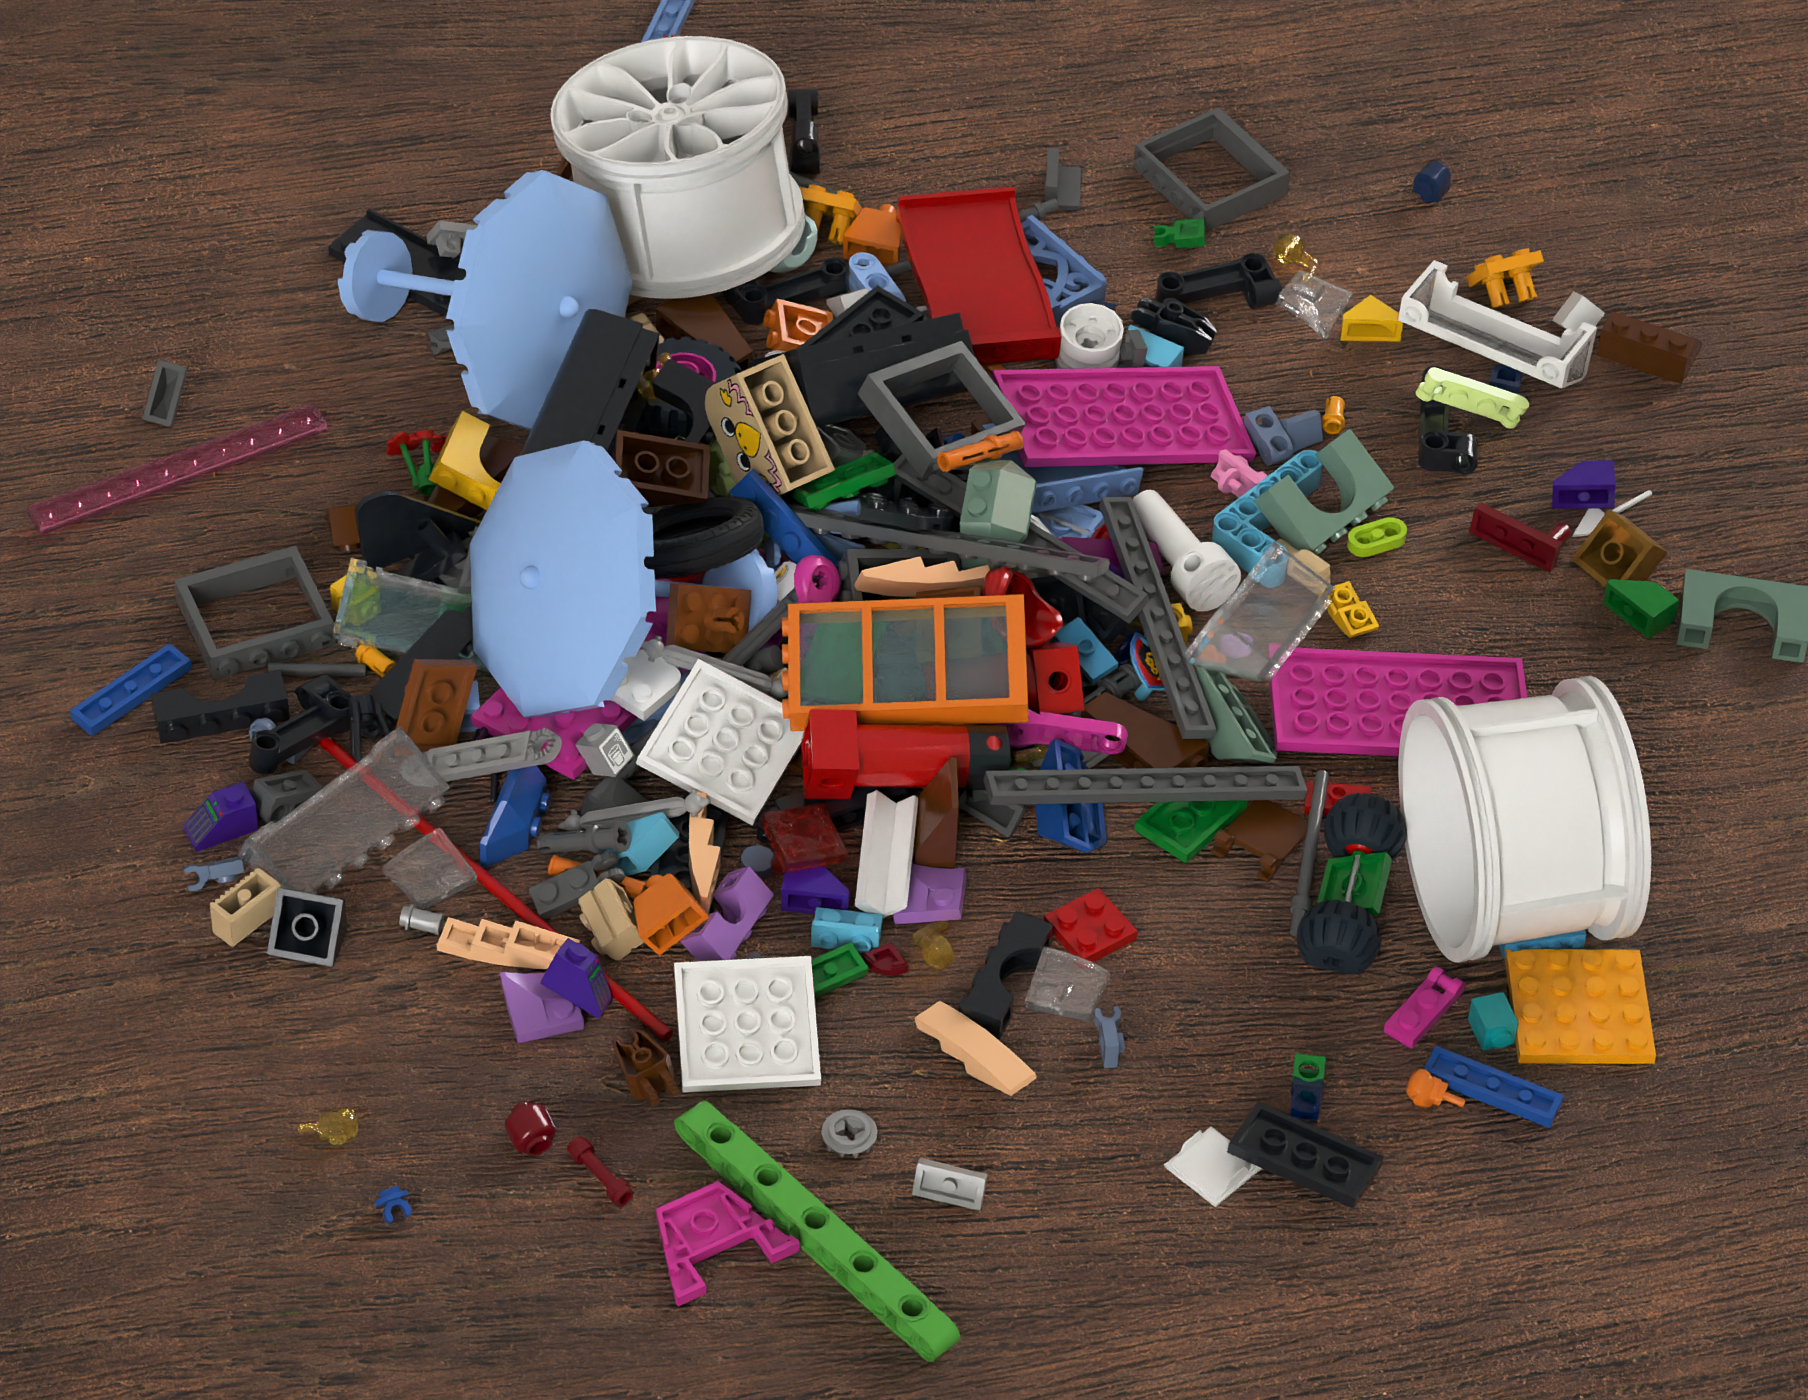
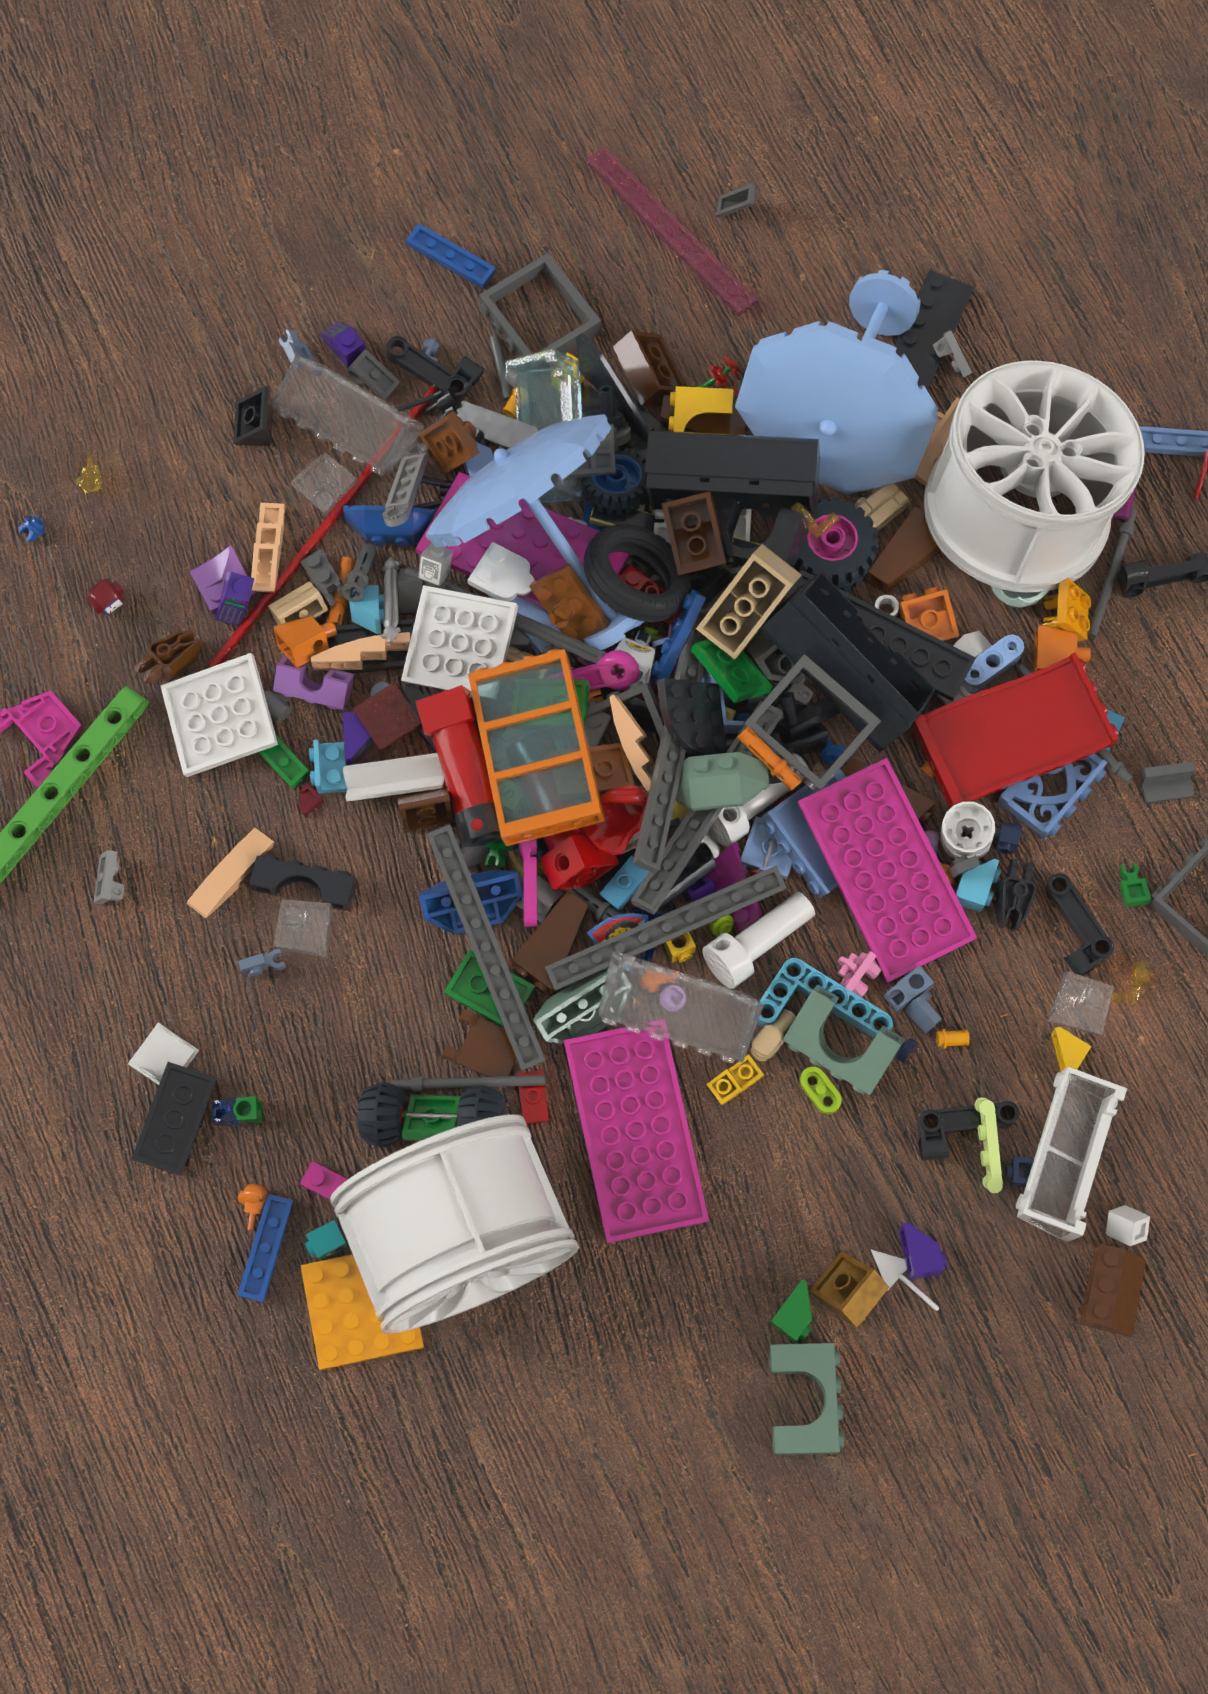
camera: 80 degrees right, 25 degrees up
(185, 717) = (456, 337): black arch -> none
(244, 907) = (257, 372): tan brick -> none
(421, 919) = (281, 481): light grey pin -> none
(617, 1189) = (98, 634): dark red bar -> none
(687, 659) = (521, 614): light grey wheel -> none
(753, 300) = (974, 602): black piece -> none
(858, 1124) = (133, 800): light grey gear -> none
(933, 895) = (374, 819): medium lavender plate -> none
(934, 946) = (318, 829): clear yellow plate -> none
(1091, 926) = (367, 935): red plate -> none
(1497, 269) = (1154, 1149): light orange plate -> none
(1518, 537) = (838, 1224): dark red piece -> none

